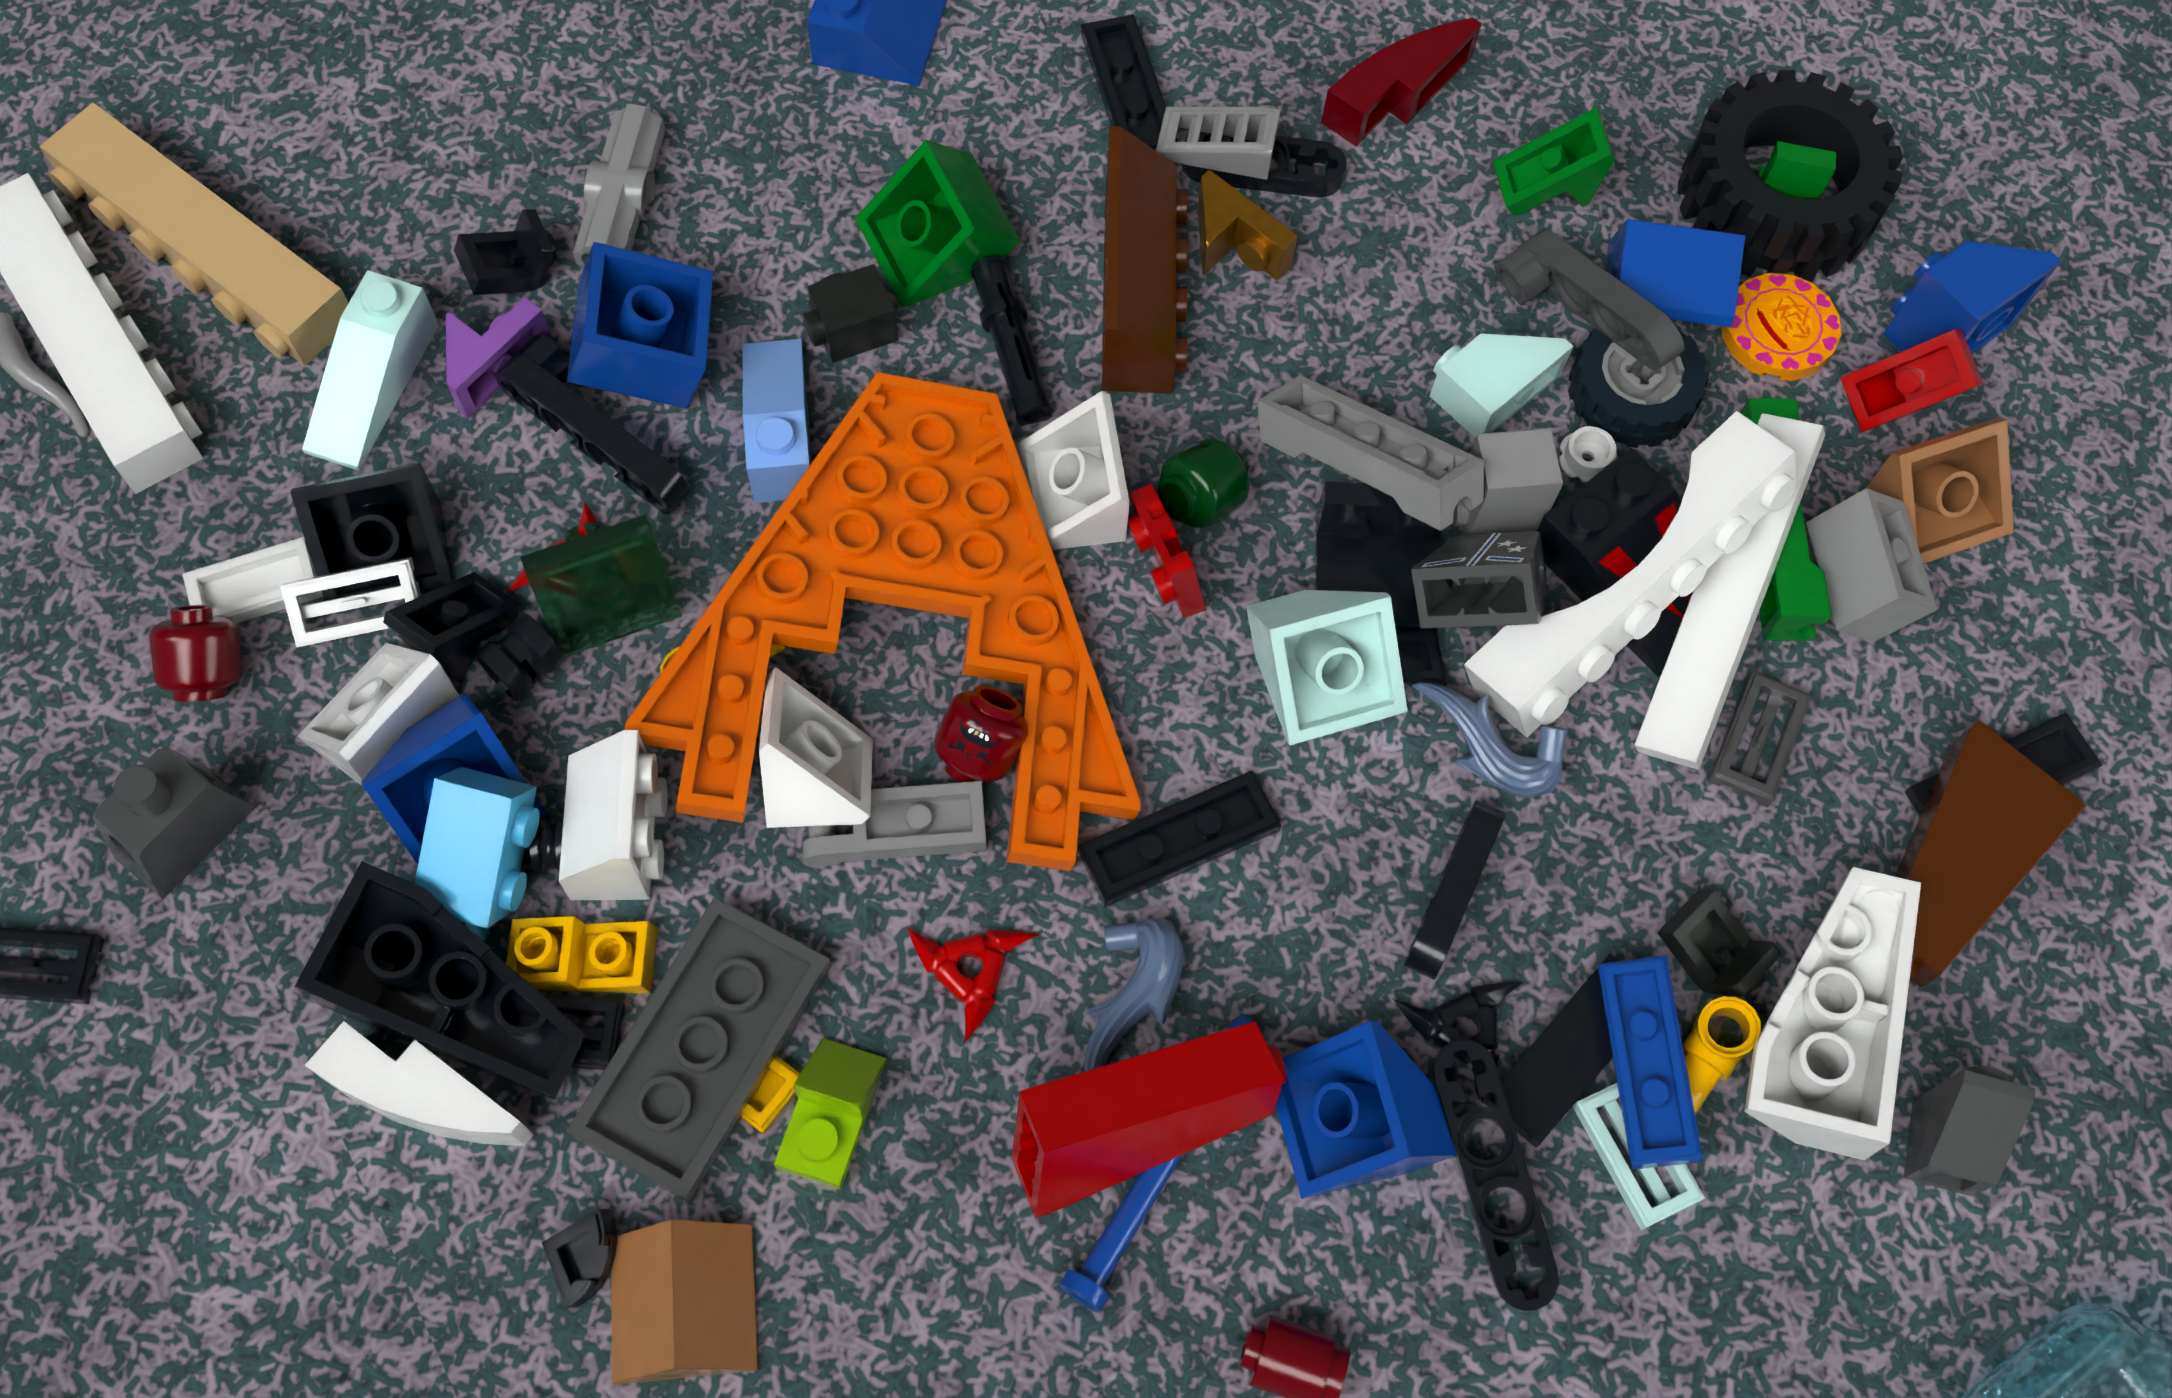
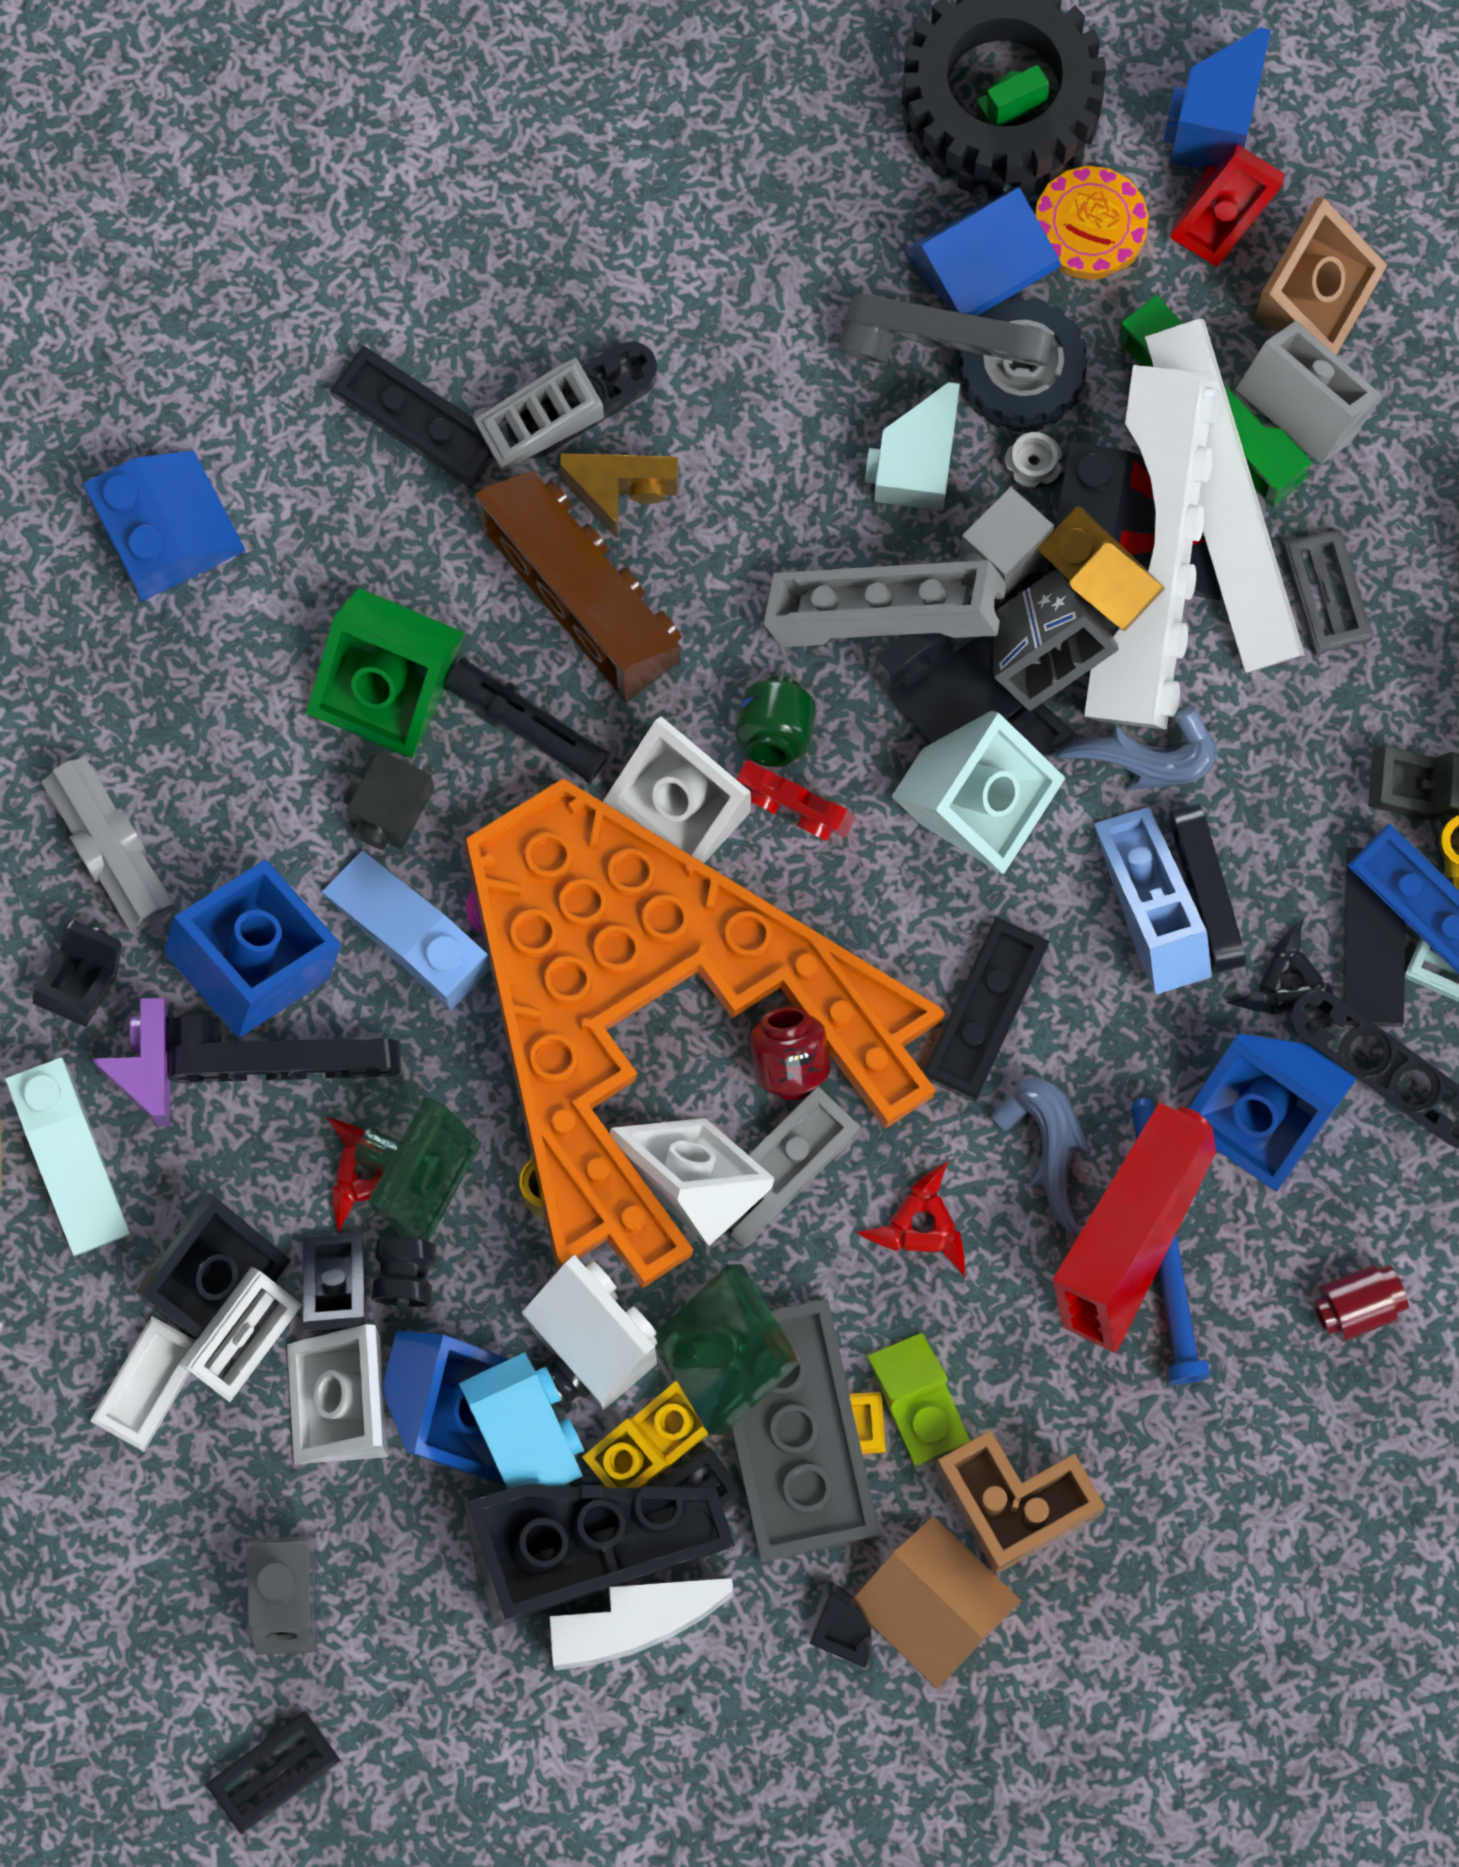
camera: 35 degrees left, 10 degrees up
(195, 654) = (174, 1467): dark red head -> none
(698, 922) = (726, 1349): none -> clear green tile
(808, 1282) = (1012, 1516): none -> medium nougat brick
(1398, 79) = (629, 239): dark red slope -> none
(1398, 864) = (1154, 901): none -> light blue slope
(1563, 160) = (816, 222): green slope -> none
(1576, 552) = (1101, 569): none -> slope

